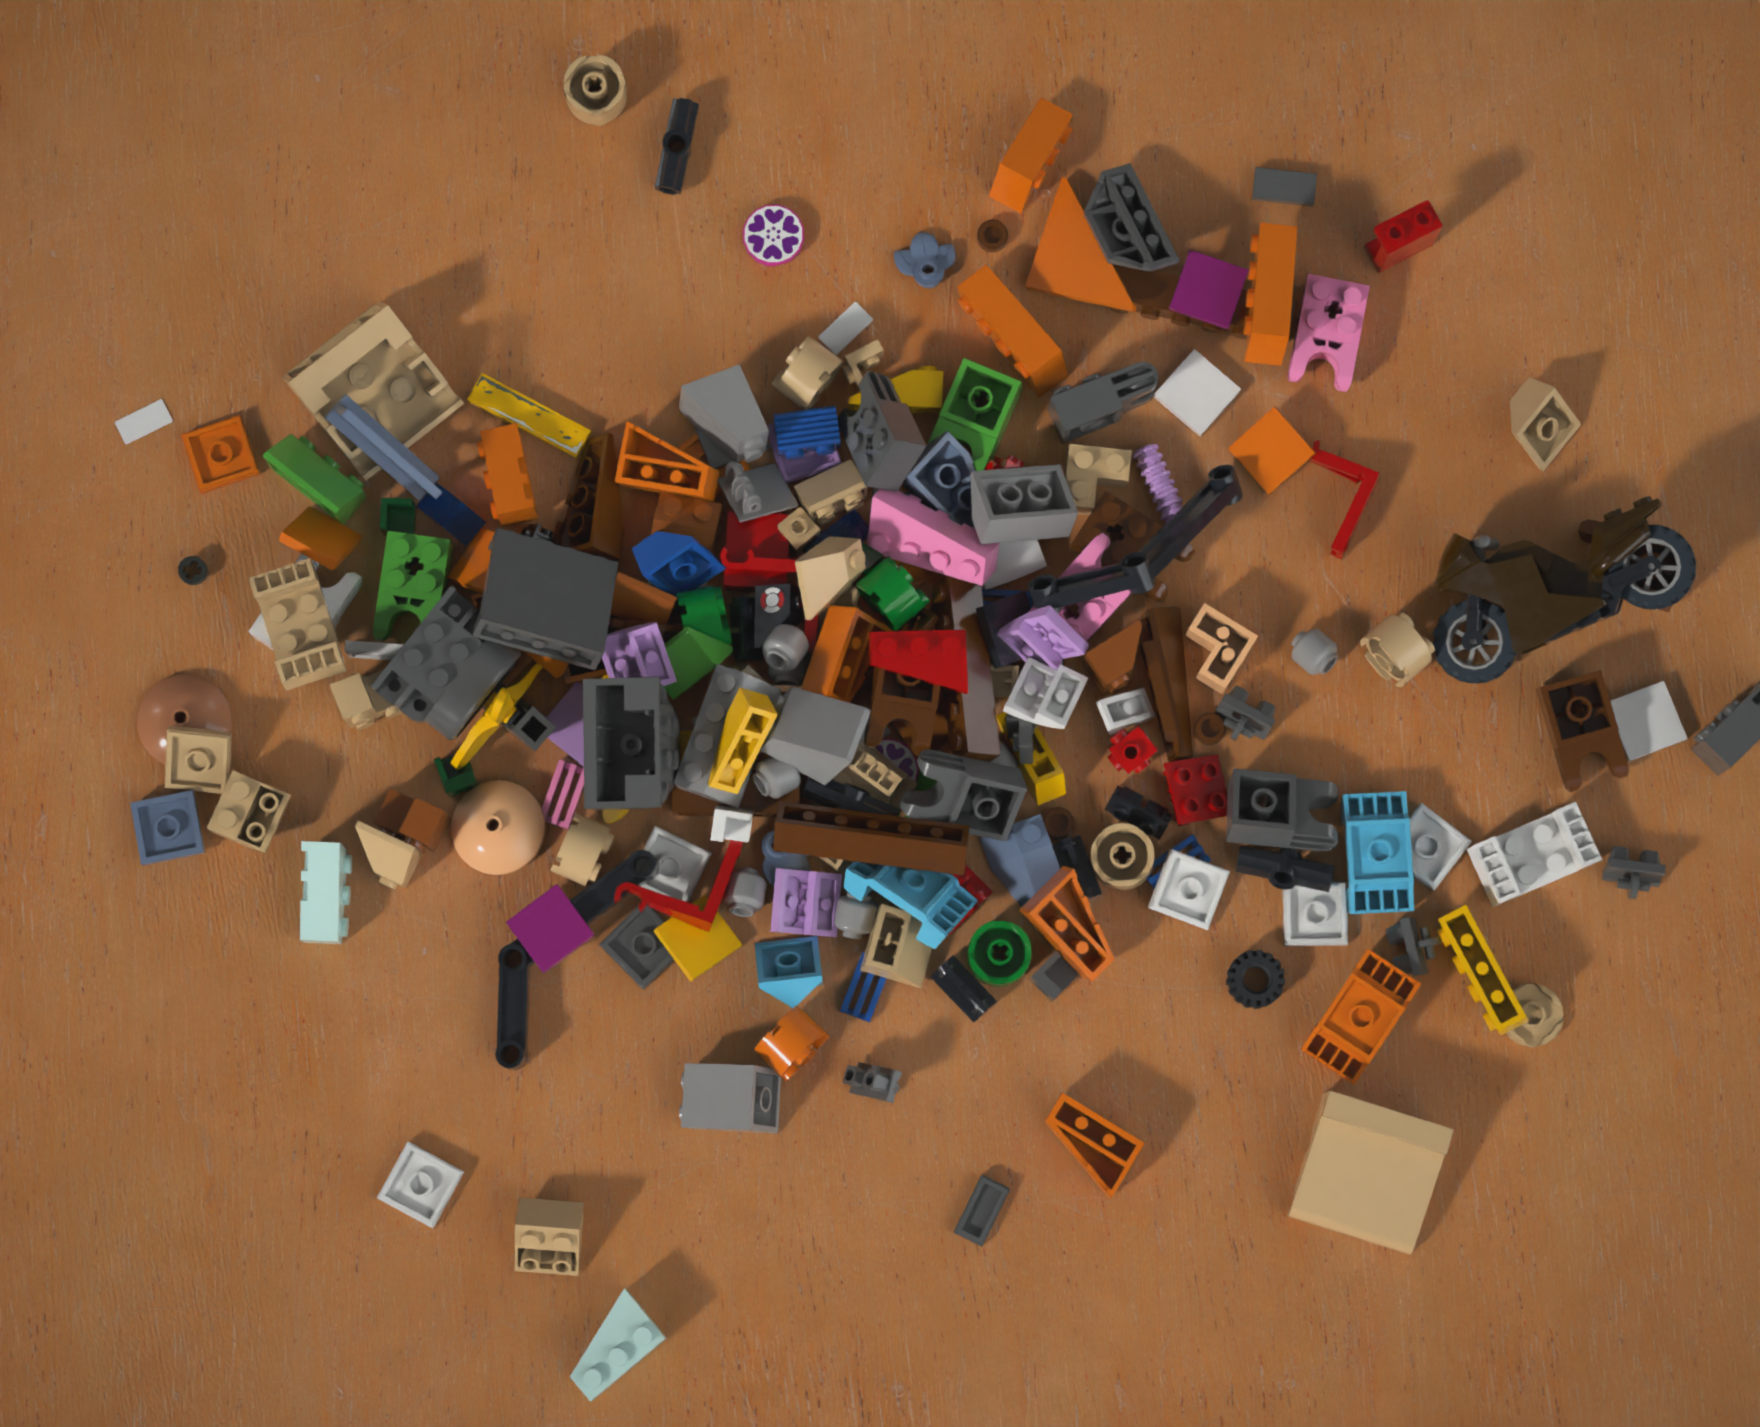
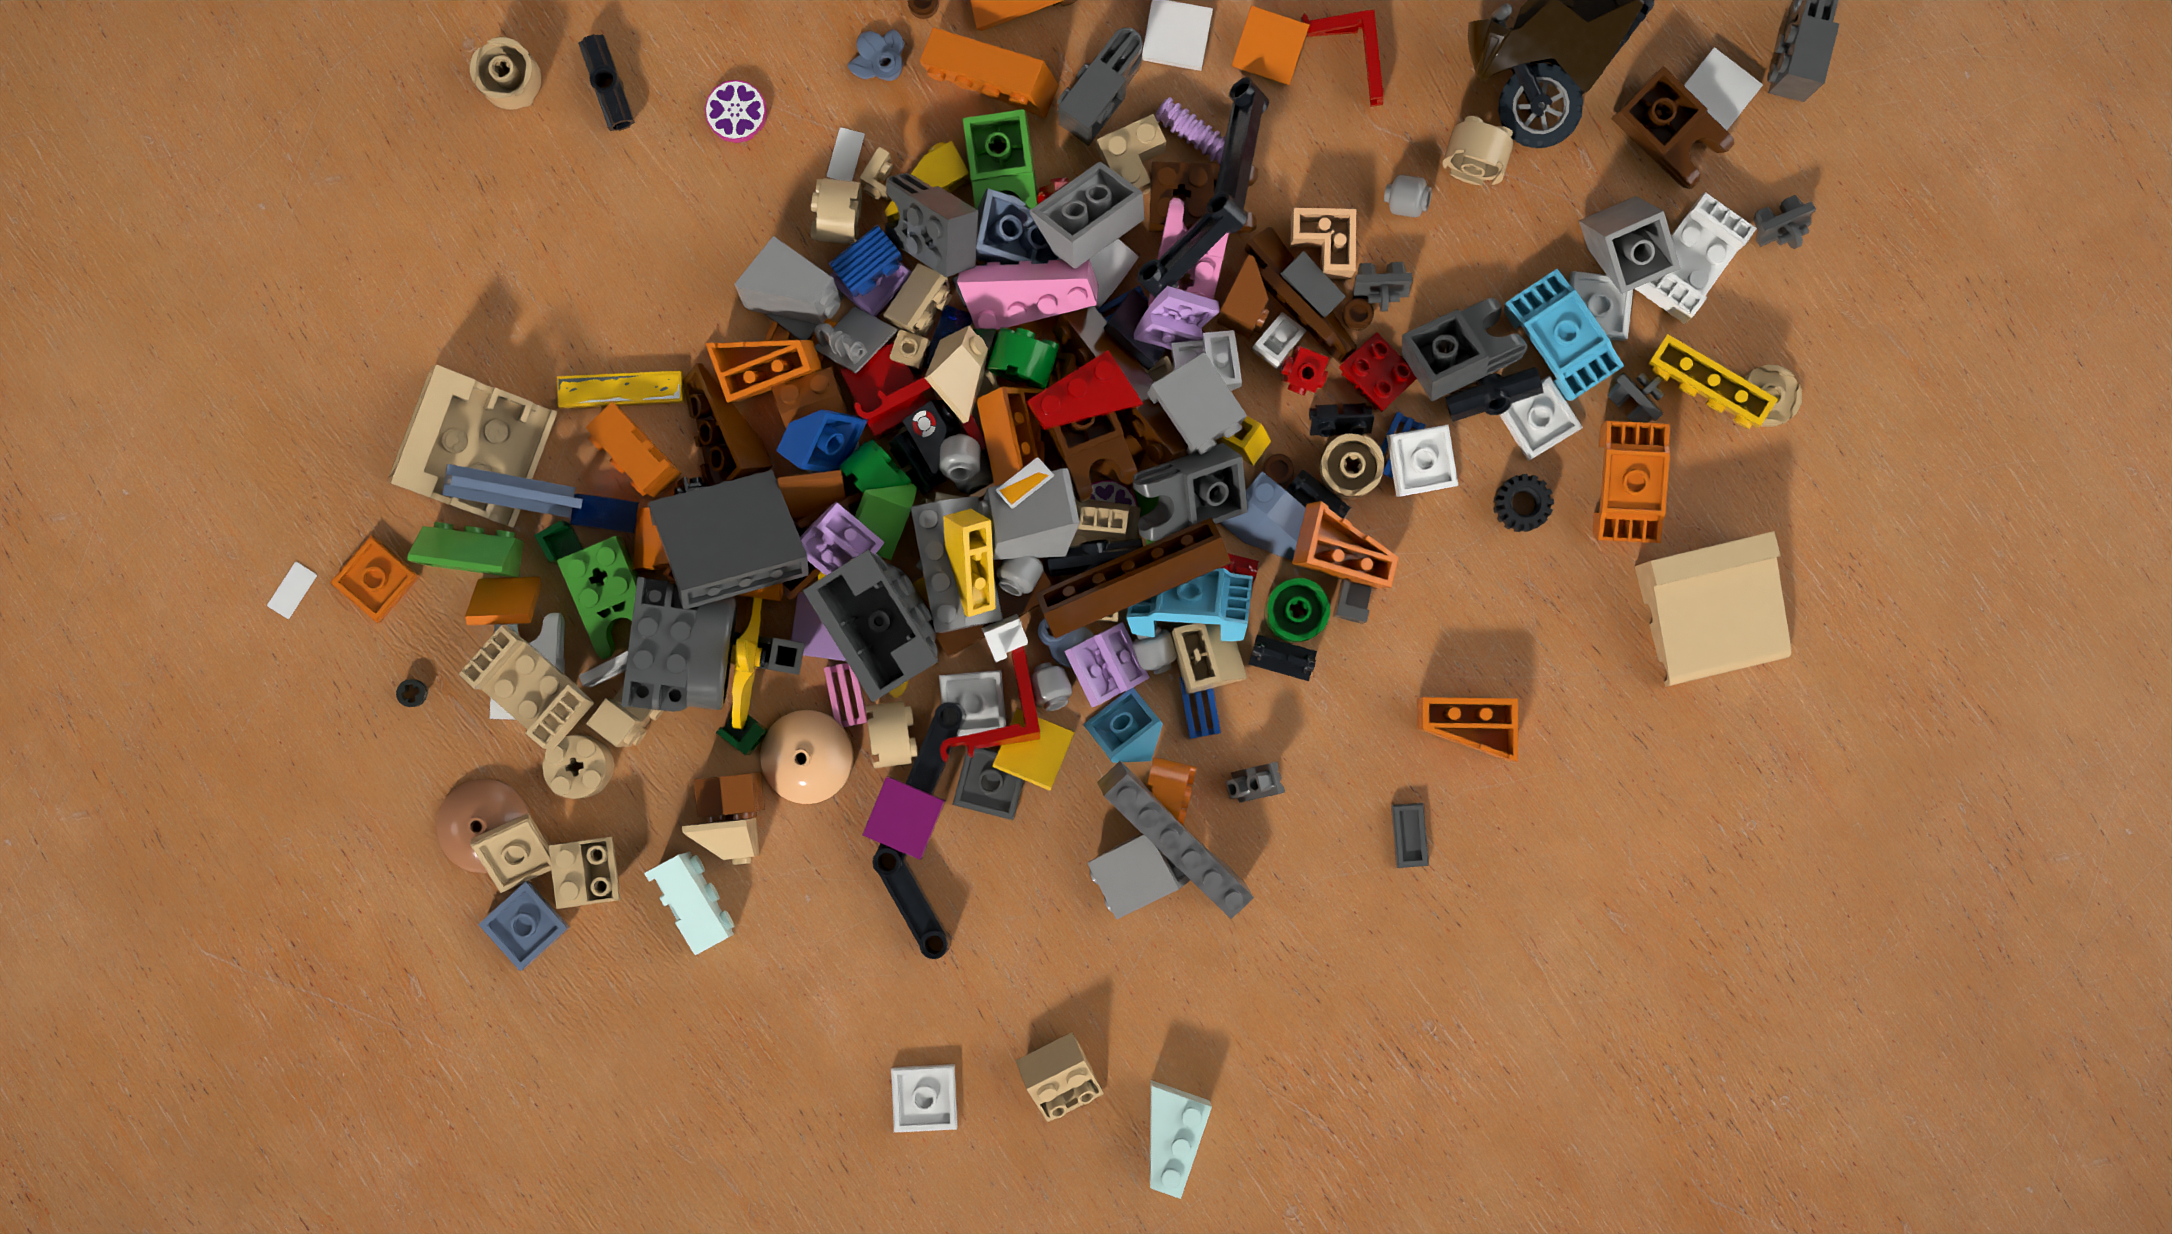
camera: 25 degrees left, 5 degrees up
(304, 734) = (588, 781): none -> tan brick
(771, 1086) = (1155, 822): none -> flat silver arch
(826, 701) = (1024, 483): none -> sticker
(1016, 722) = (1198, 404): none -> light grey panel
(1182, 679) = (1312, 285): none -> dark grey tile
(1481, 807) = (1631, 243): none -> light grey slope

